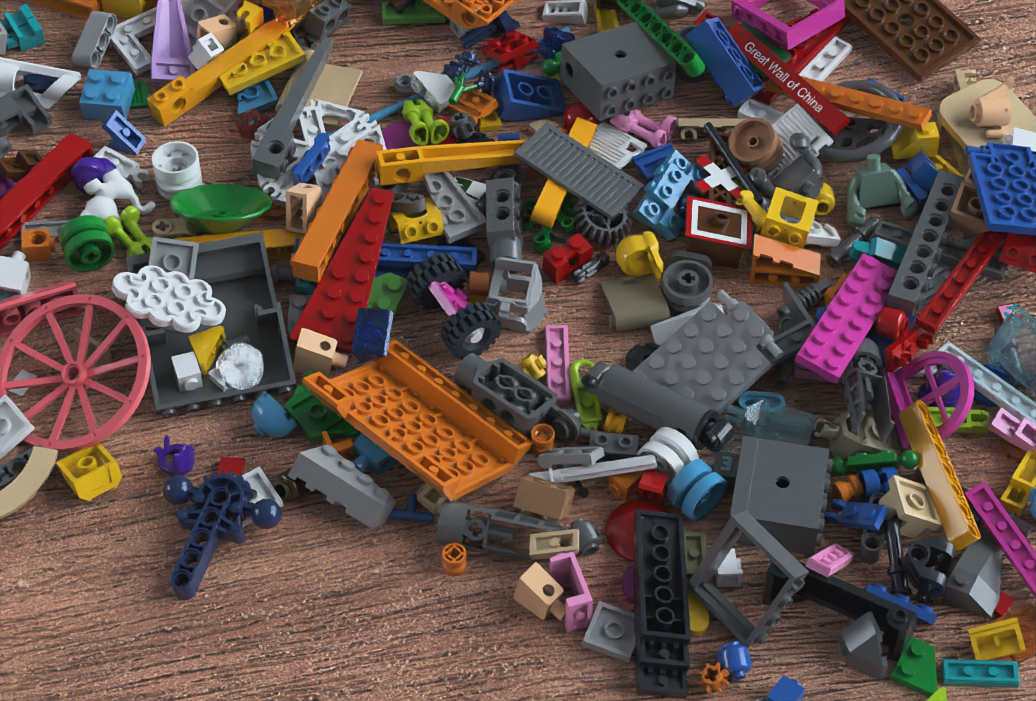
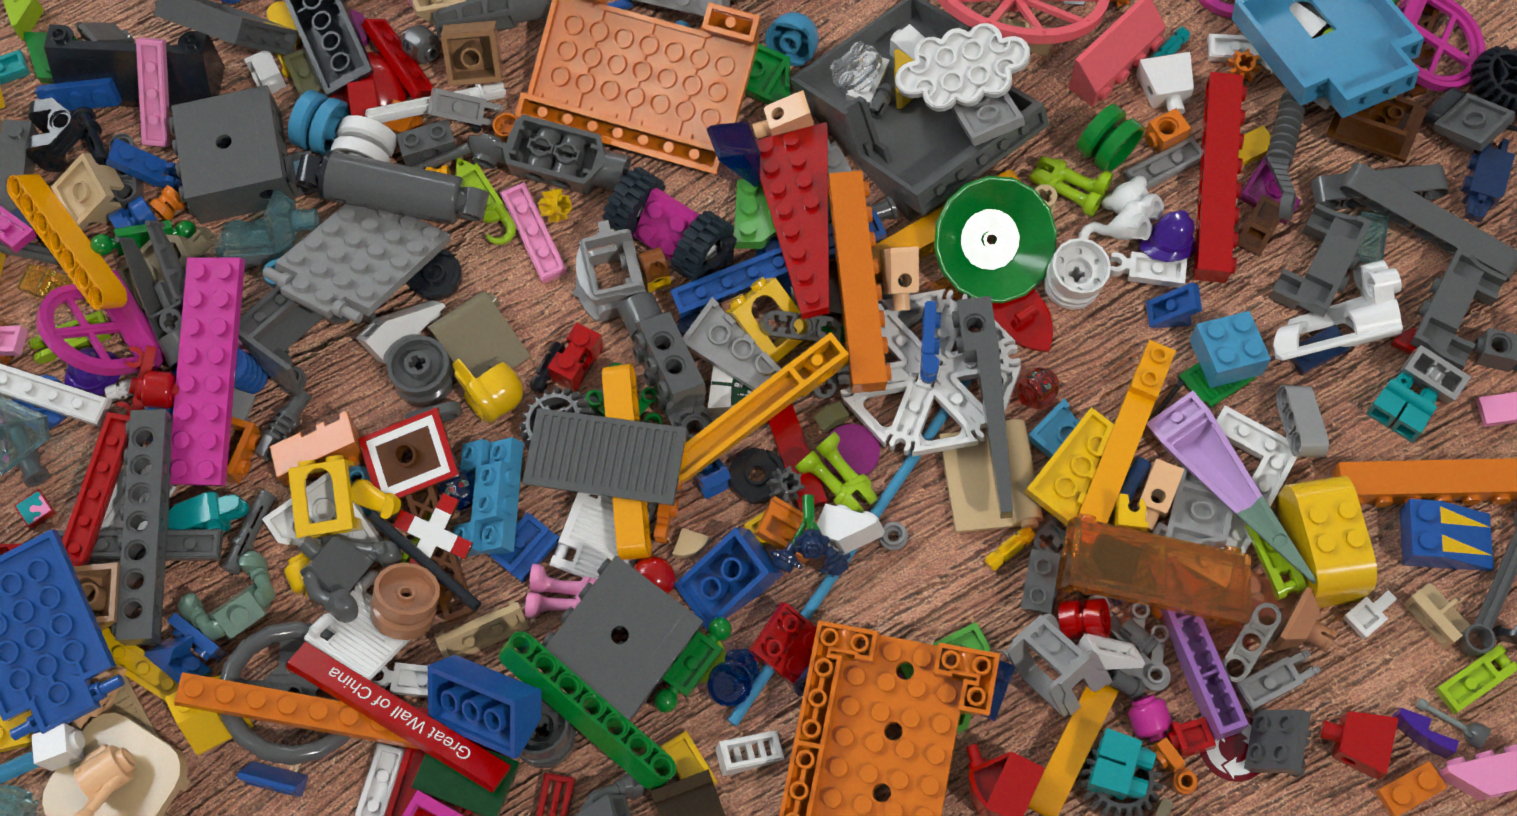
camera: 160 degrees right, 15 degrees up
(205, 50) = (1155, 443): white brick -> none
(229, 170) = (1026, 321): none -> red shield
(338, 51) = (1009, 548): none -> yellow axle
(611, 547) = (403, 66): none -> red tile
(968, 472) = (42, 280): none -> clear yellow slope

